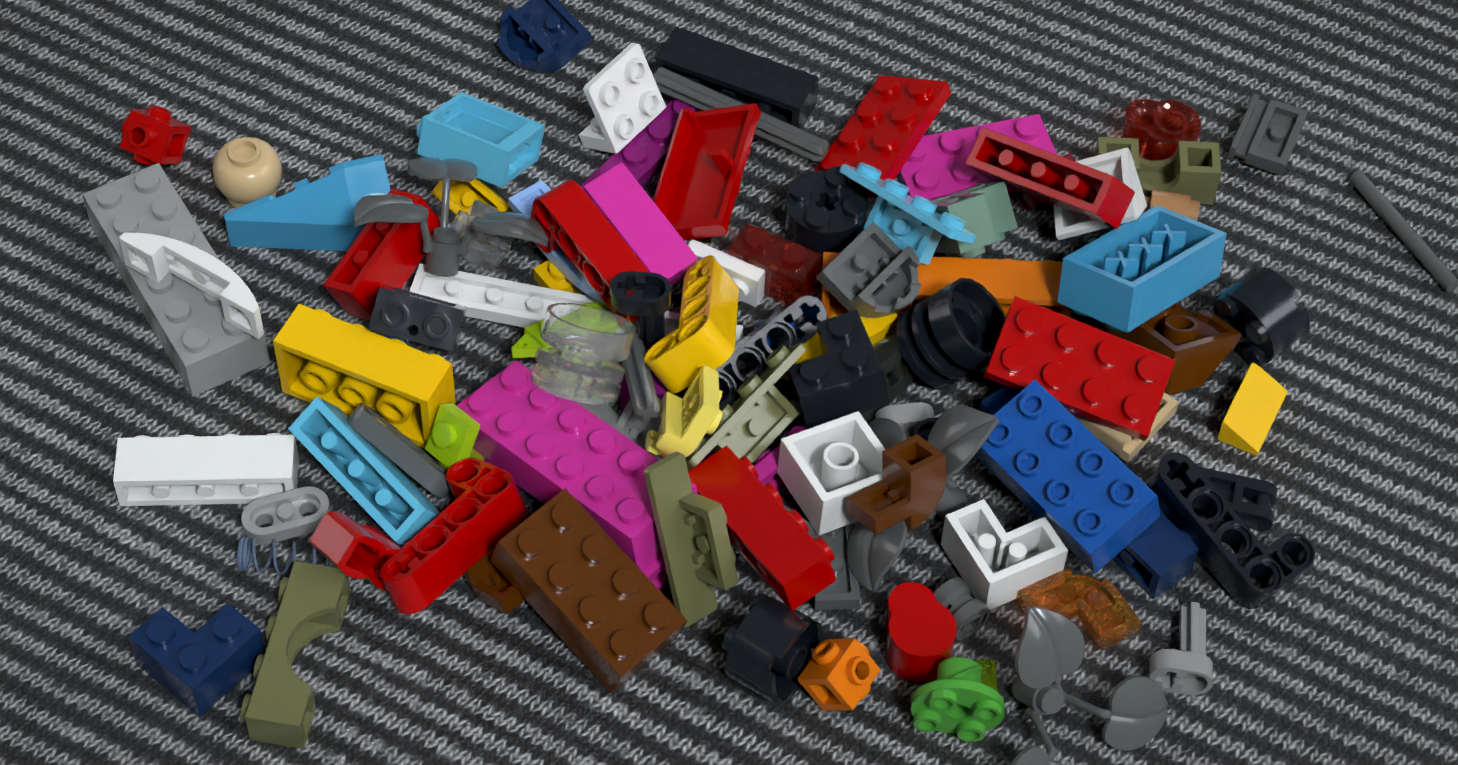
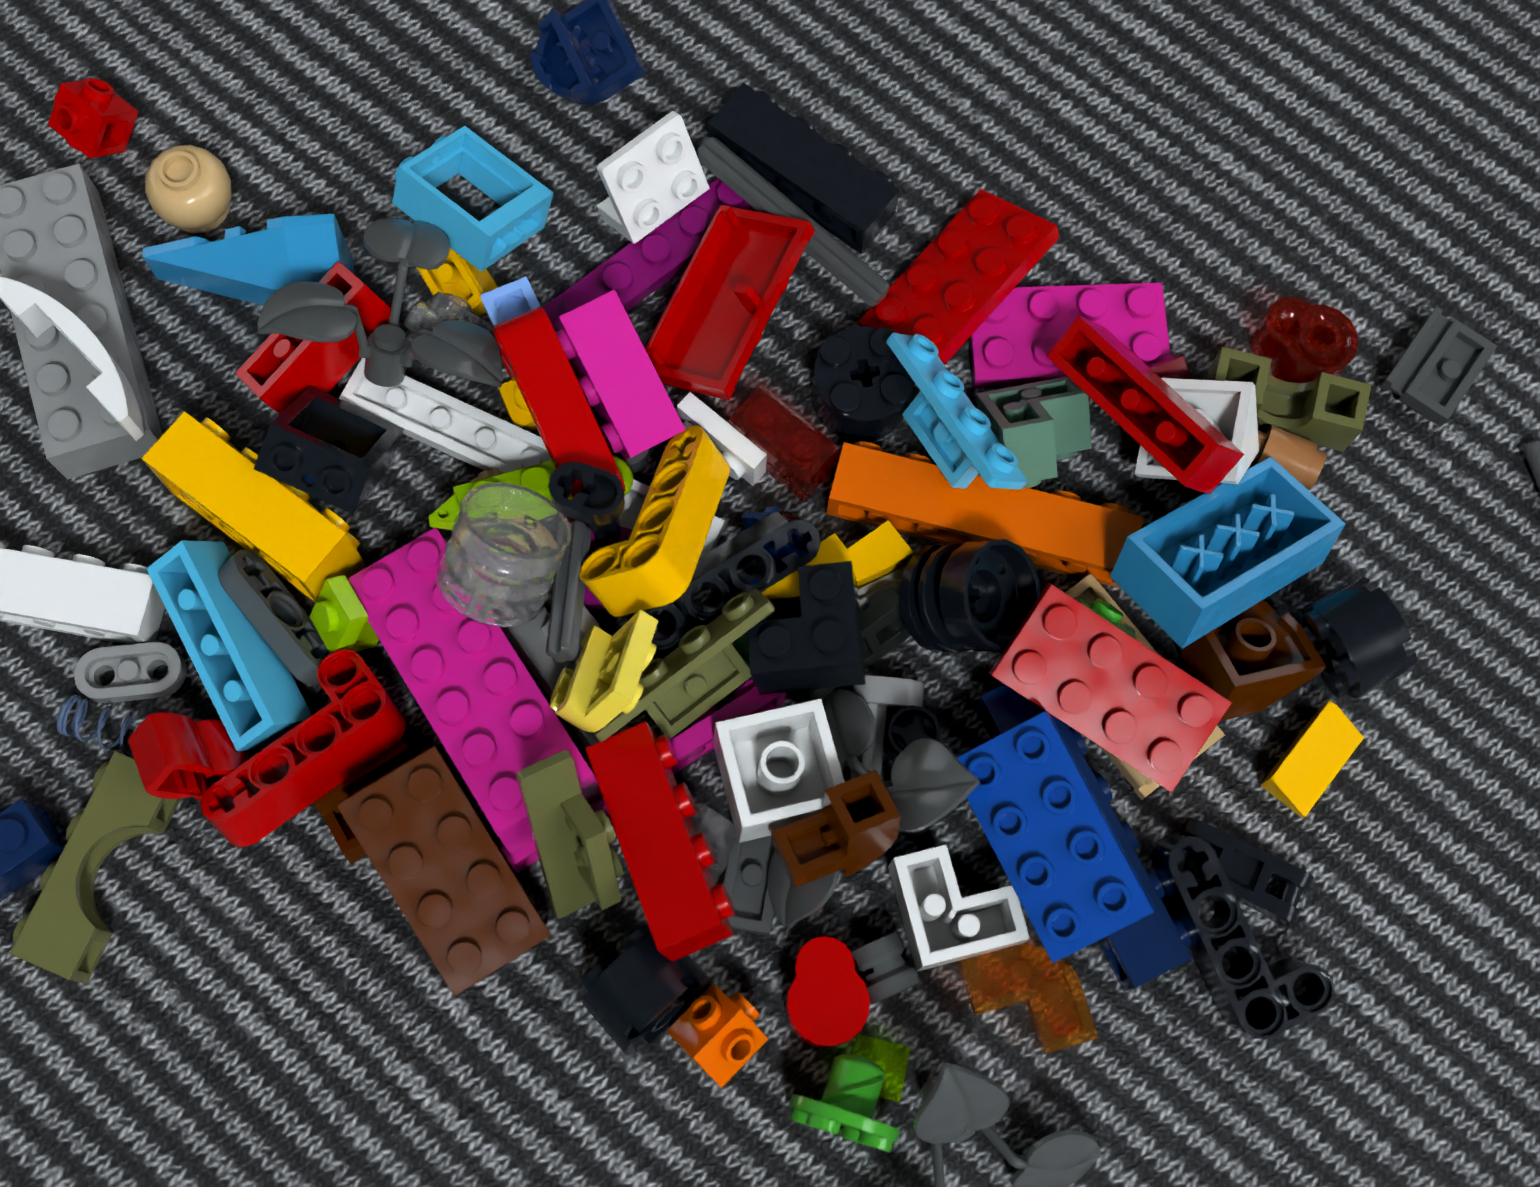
camera: 10 degrees right, 20 degrees up
(873, 275) = (892, 495): dark grey slope -> none
(1186, 669) = (1142, 1108): light grey piece -> none

